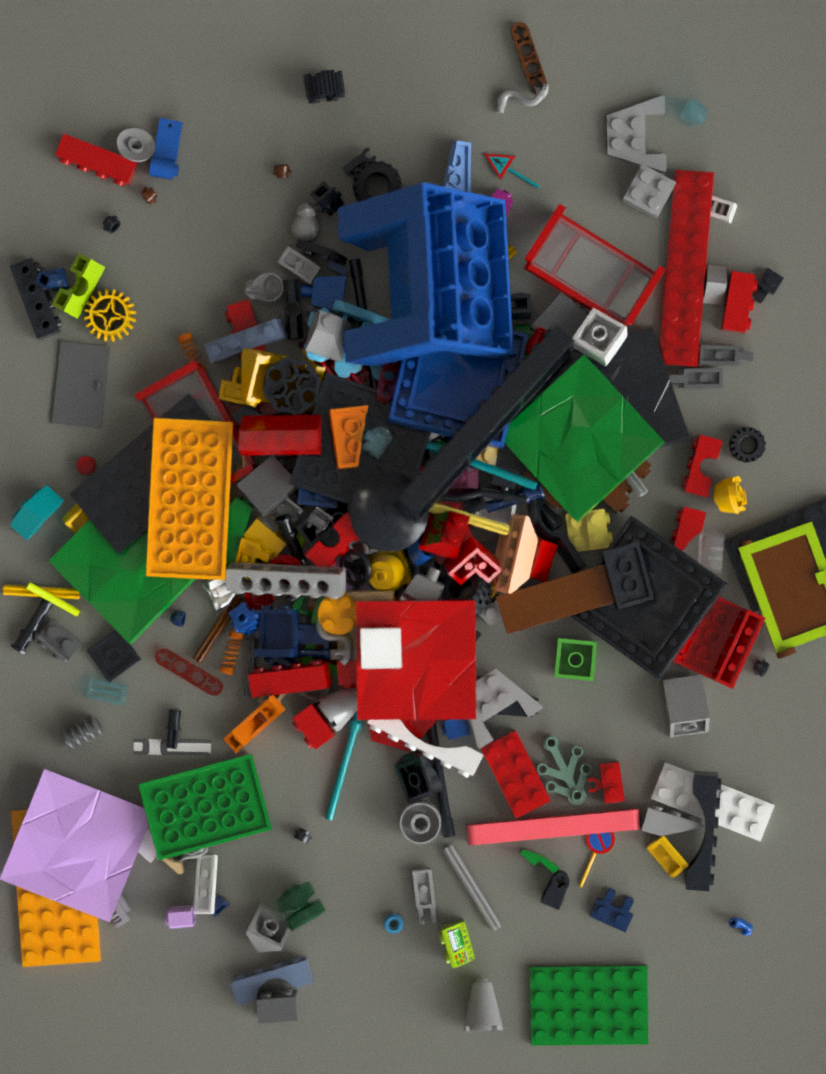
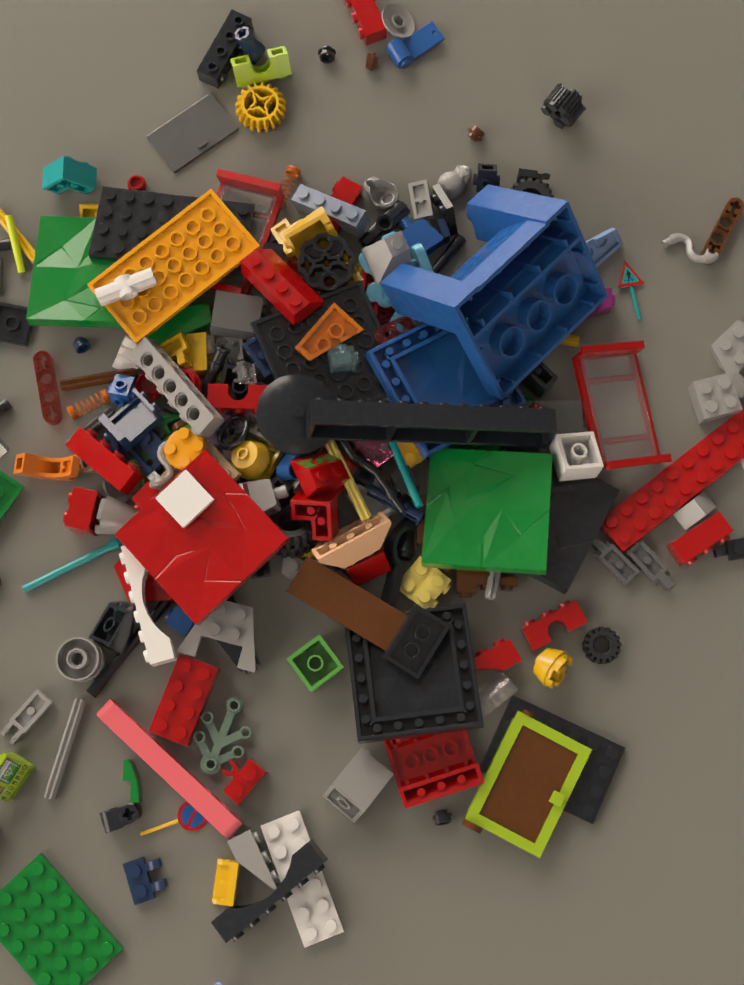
camera: 50 degrees right, 10 degrees down
(177, 550) = (125, 287): none -> white piece

